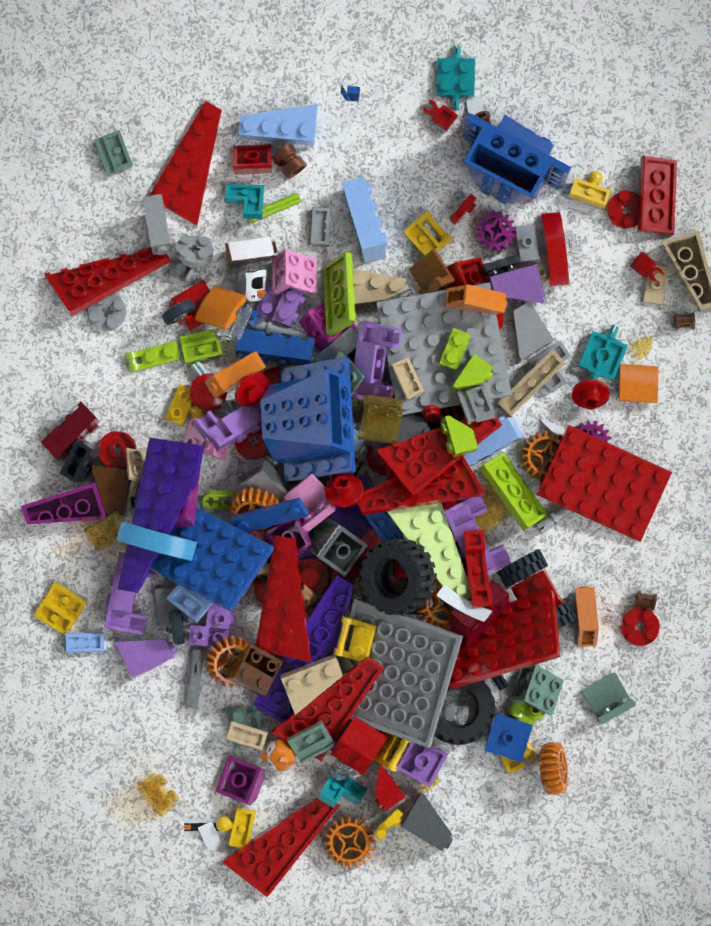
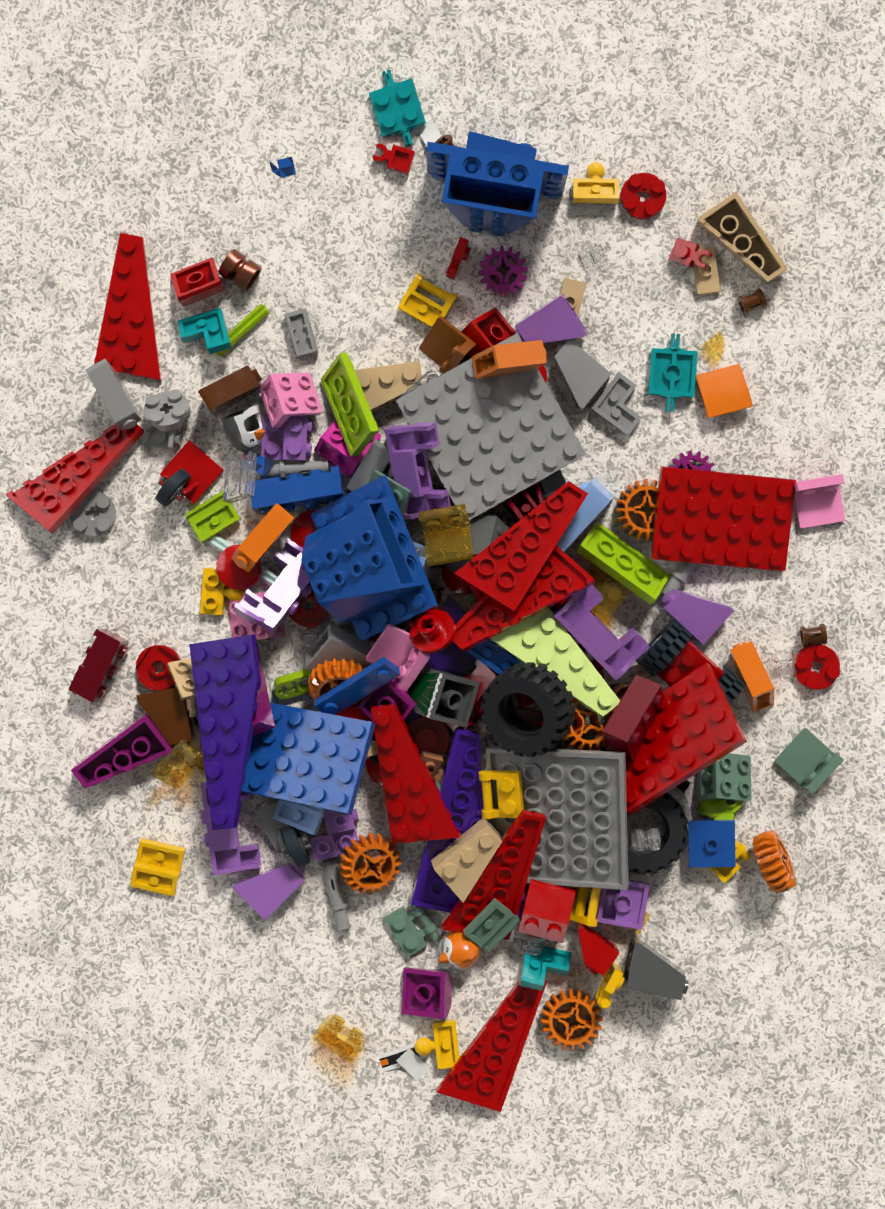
camera: 25 degrees left, 5 degrees up
(80, 461) = (120, 695): black brick -> none
(84, 642) = (197, 896): light blue plate -> none
(113, 152) = (36, 328): sand green plate -> none
(153, 356) = (163, 546): lime plate -> none
(156, 541) = (238, 762): dark azure slope -> none
(220, 307) = (218, 466): orange slope -> none
(246, 736) = (416, 941): tan plate -> none
(251, 389) = (286, 549): red piece -> none
(254, 670) = (399, 867): reddish brown slope -> none
(281, 126) = (217, 232): light blue wedge -> none
(365, 220) = (349, 308): light blue wedge -> none
(407, 378) = (461, 477): tan plate -> none
(431, 413) = (501, 507): red plate -> none
(454, 349) = (504, 424): lime plate -> none
(459, 436) = (545, 526): lime slope -> none
(463, 604) = (613, 716): white sticker -> none
(473, 374) = (535, 446): lime slope -> none
(476, 404) = (550, 480): light grey plate -> none
(477, 568) = (614, 669): red slope -> none
(493, 267) = (514, 314): black plate -> none
(527, 244) = (544, 273): light grey plate -> none
(532, 382) = (603, 430): tan plate -> none
(555, 249) = (578, 268): red slope -> none
(557, 429) = (646, 474): white sticker -> none
(557, 551) = (695, 613): none -> medium lavender slope
(590, 394) = (674, 422): red piece -> none
(657, 195) = (673, 167): red tile -> none
(685, 495) = (819, 501): none -> bright pink bracket

